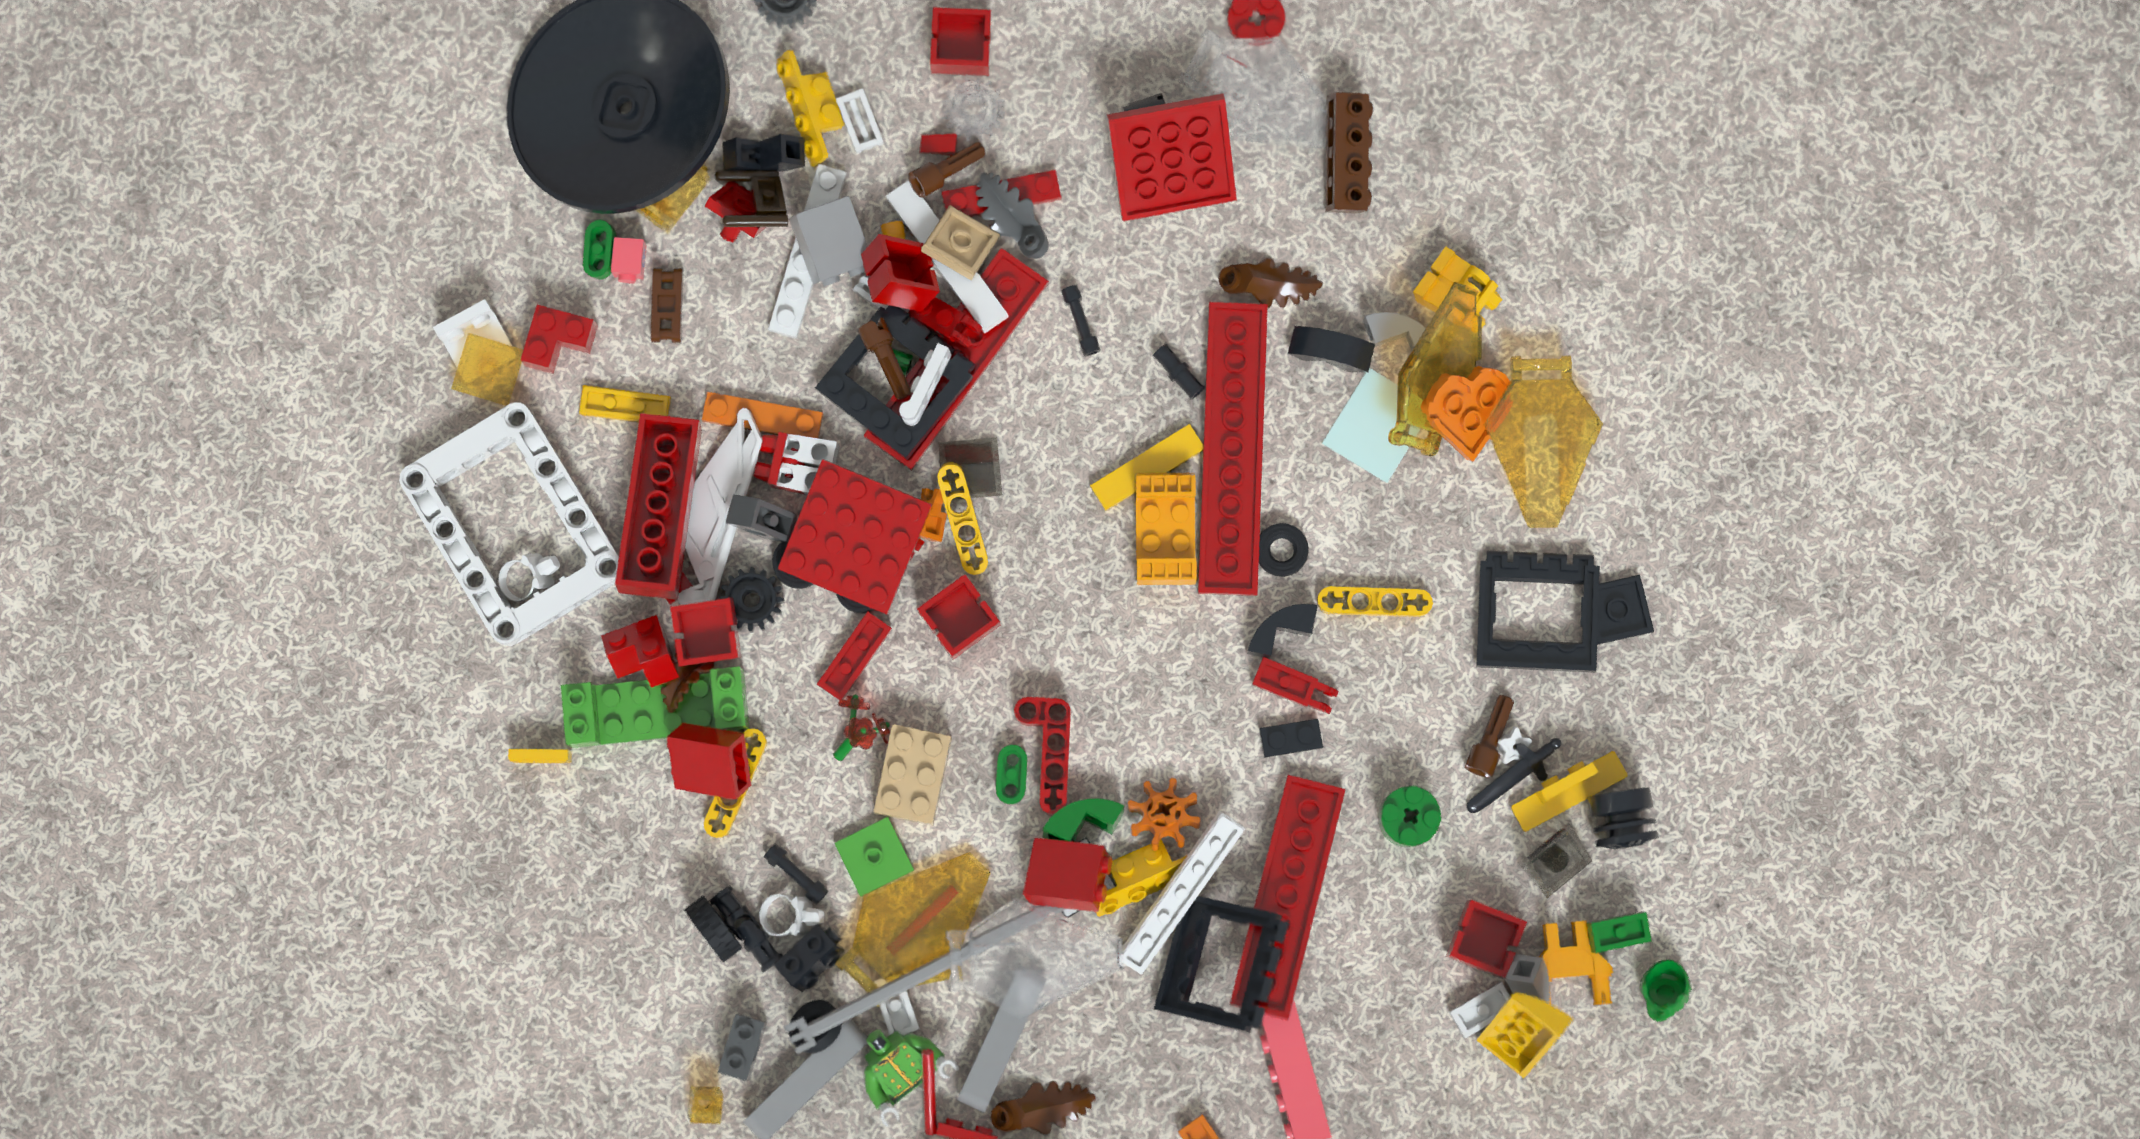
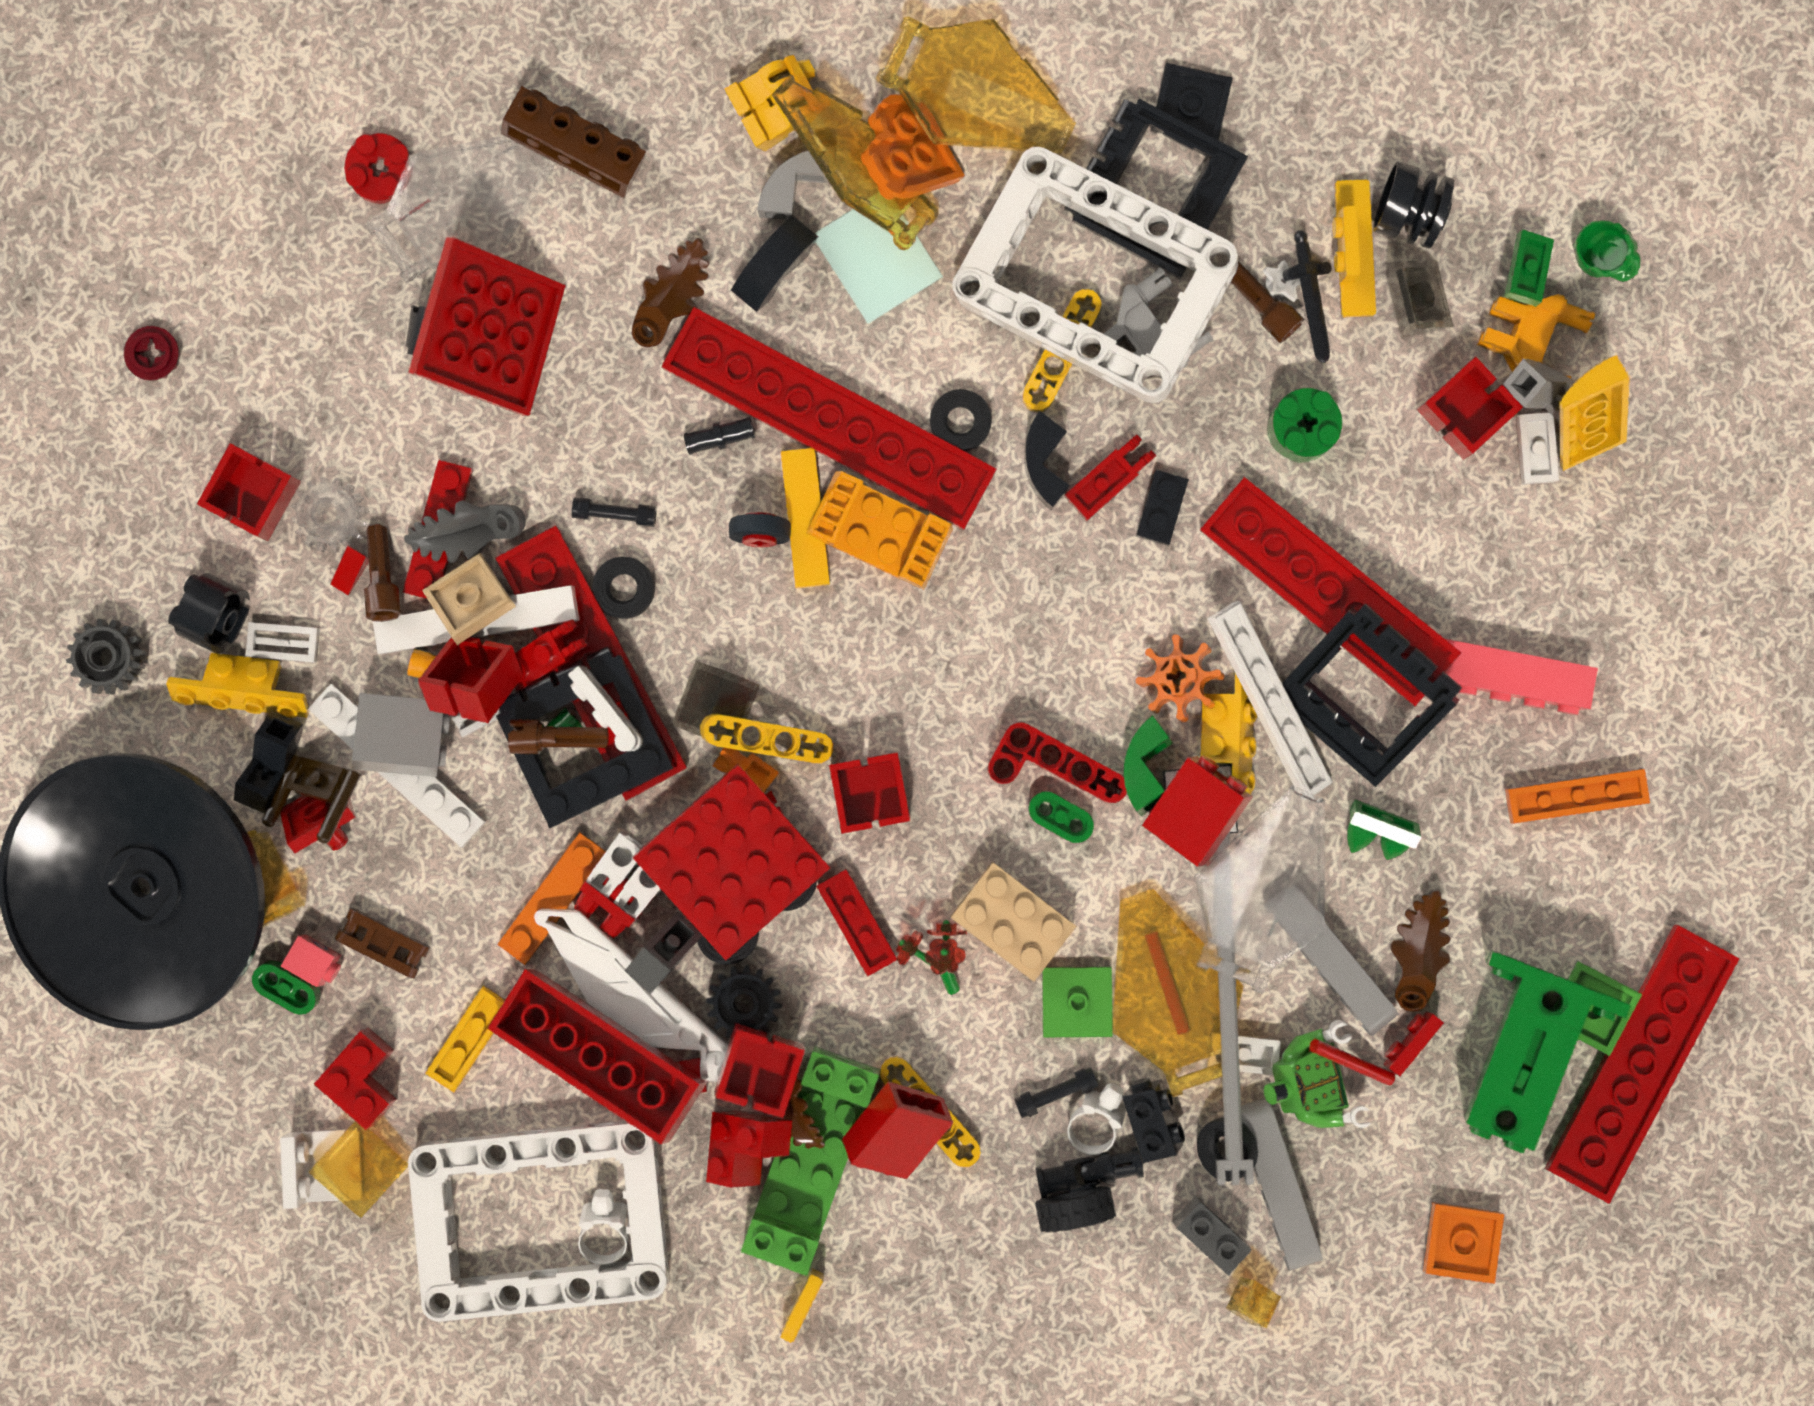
camera: 65 degrees left, 5 degrees up
(856, 56) = (210, 612): none -> black brick
(1032, 372) = (614, 568): none -> black tyre
(1120, 436) = (759, 529): none -> black wheel
(1125, 1018) = (1369, 821): none -> green tile
(1419, 659) = (1136, 320): none -> light grey connector
(1503, 596) = (1123, 213): none -> white beam

